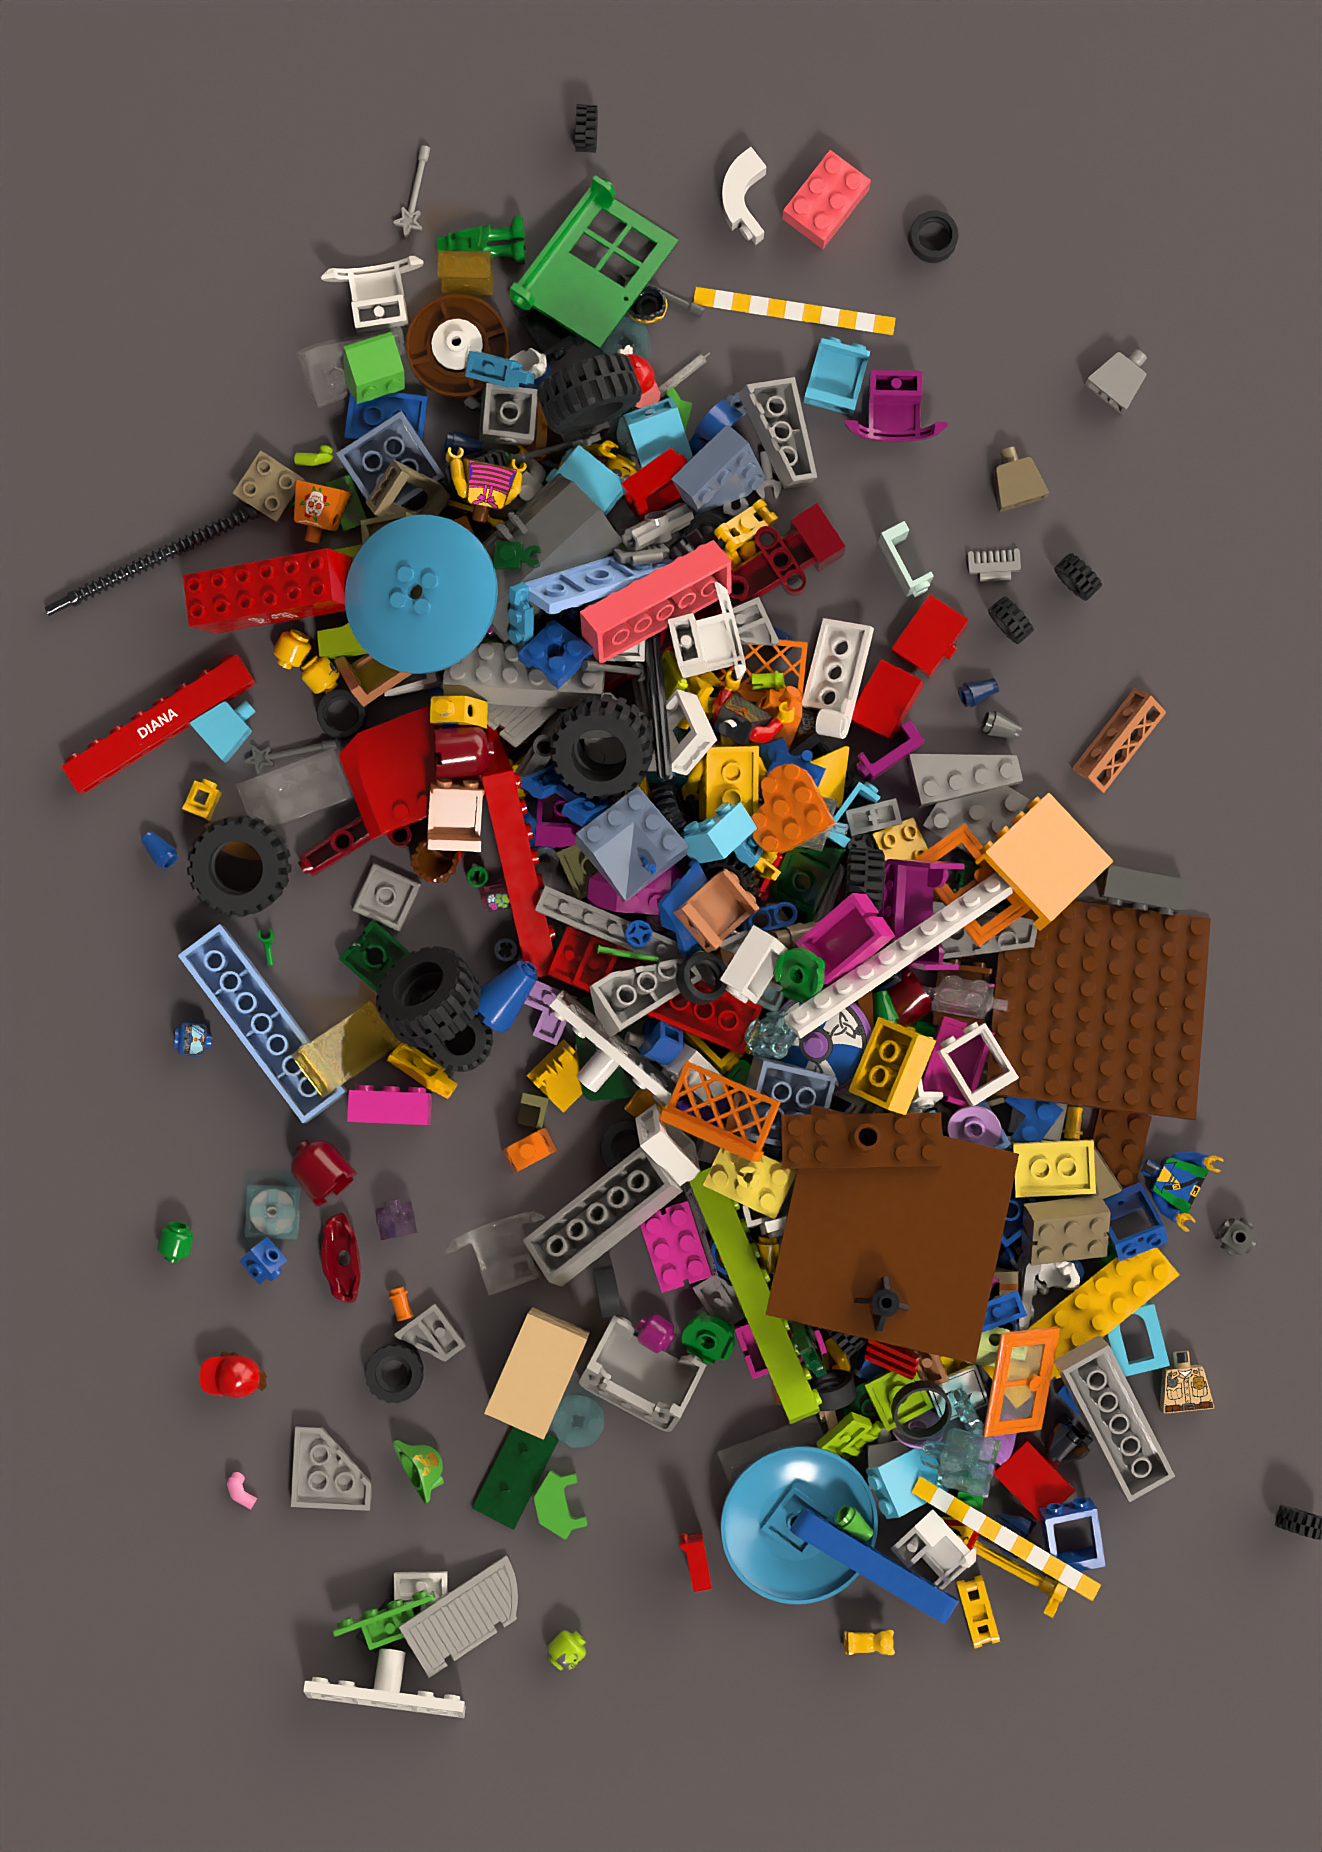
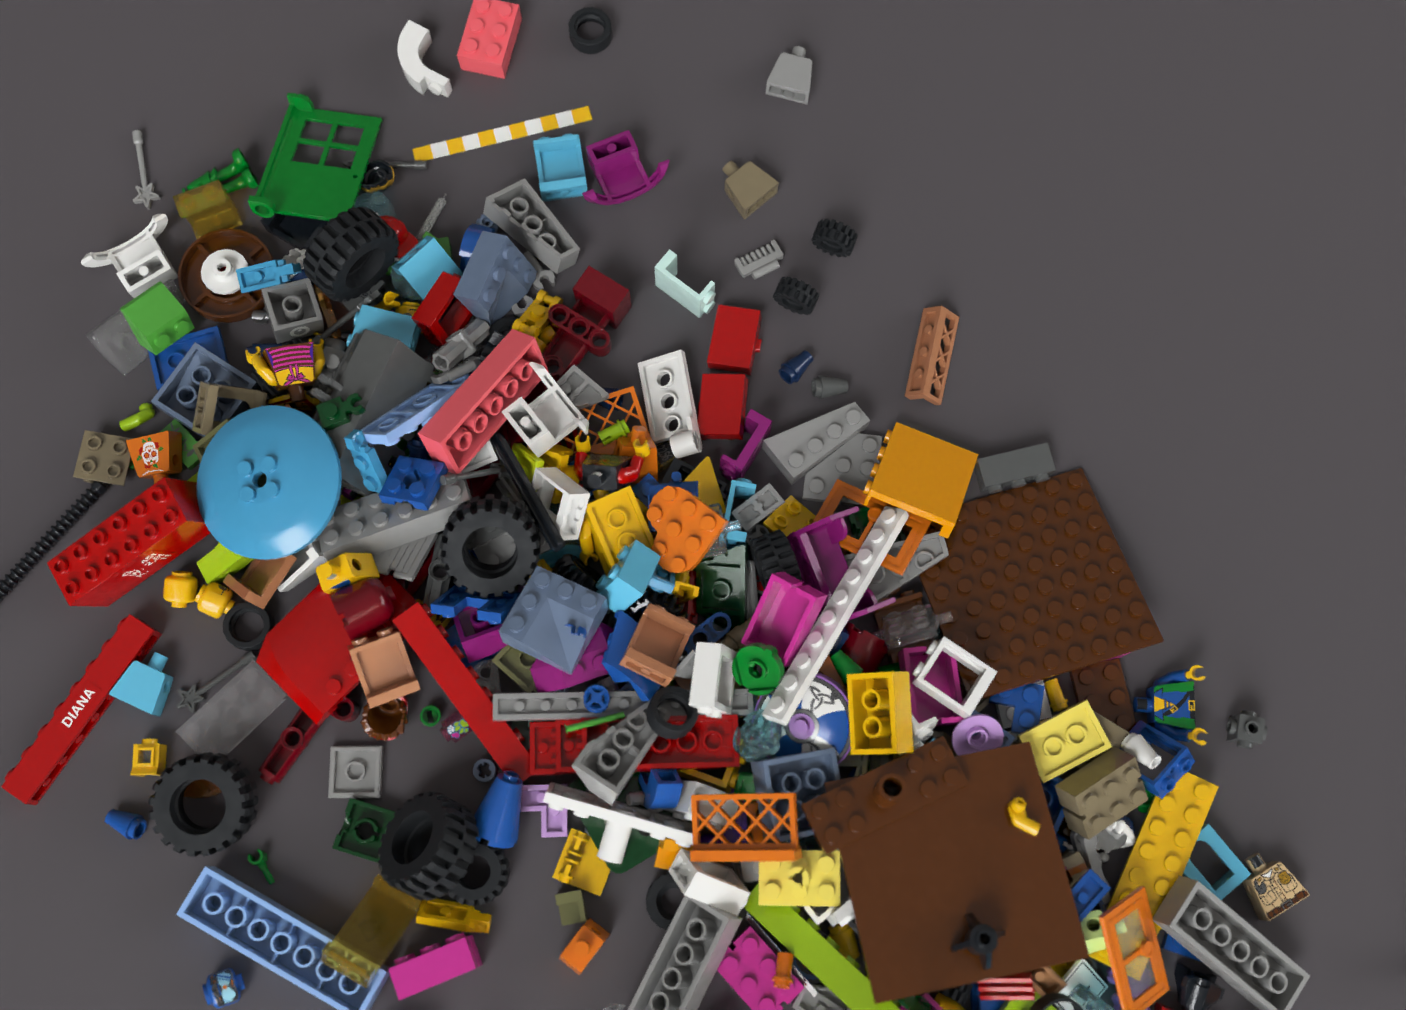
camera: 30 degrees left, 10 degrees down
(586, 128) = (265, 60): black tyre -> none
(699, 1252) = (783, 970): none -> orange pin
(974, 1214) = (1019, 818): none -> yellow arm
(1121, 1209) = (1140, 748): none -> white cone

